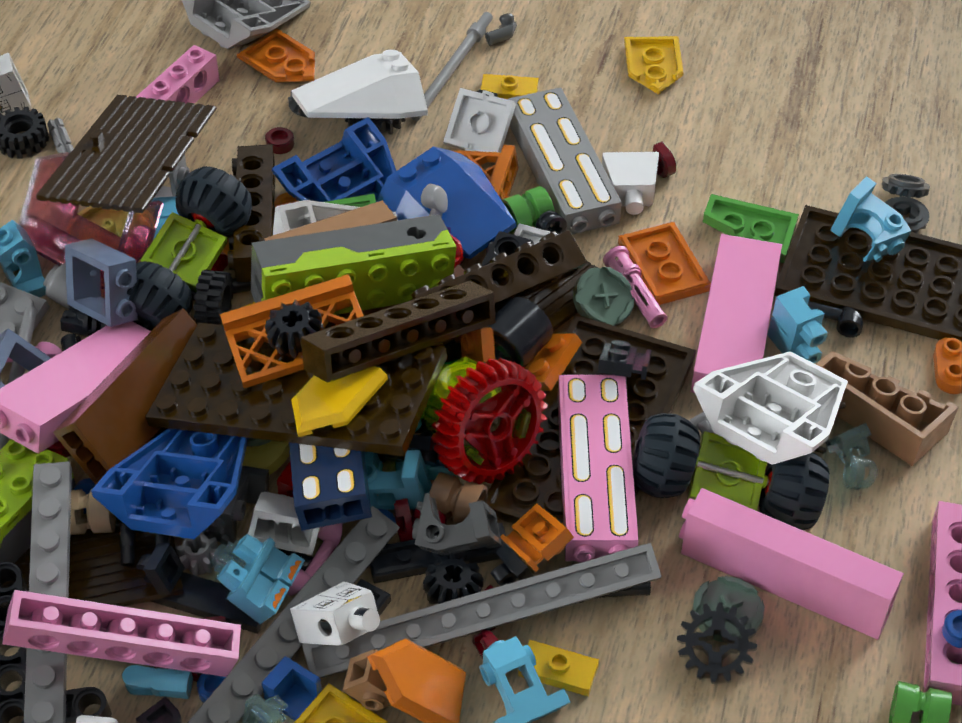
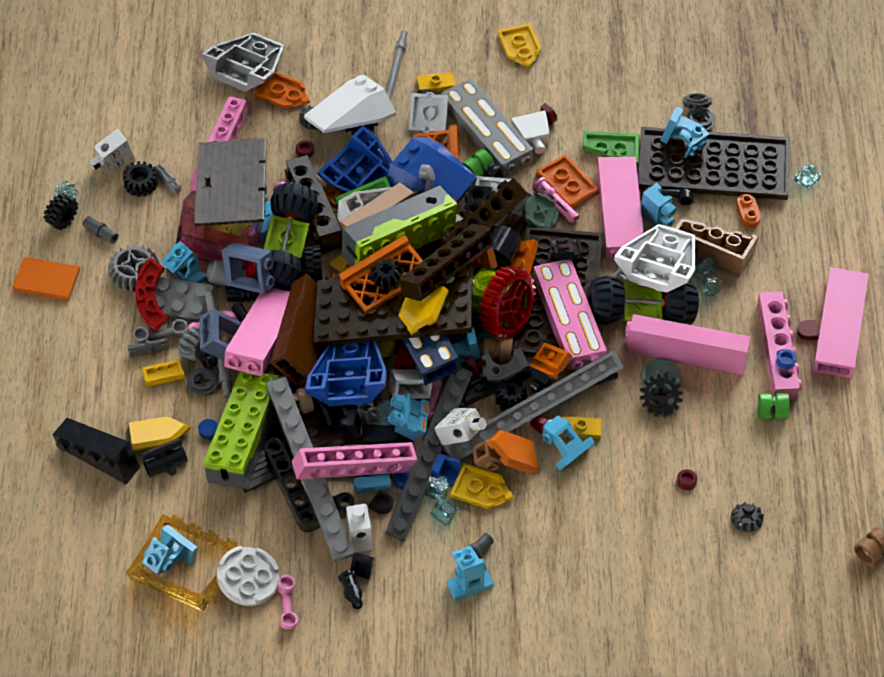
camera: 15 degrees left, 5 degrees up
(505, 31) = (419, 41): dark grey arm -> none

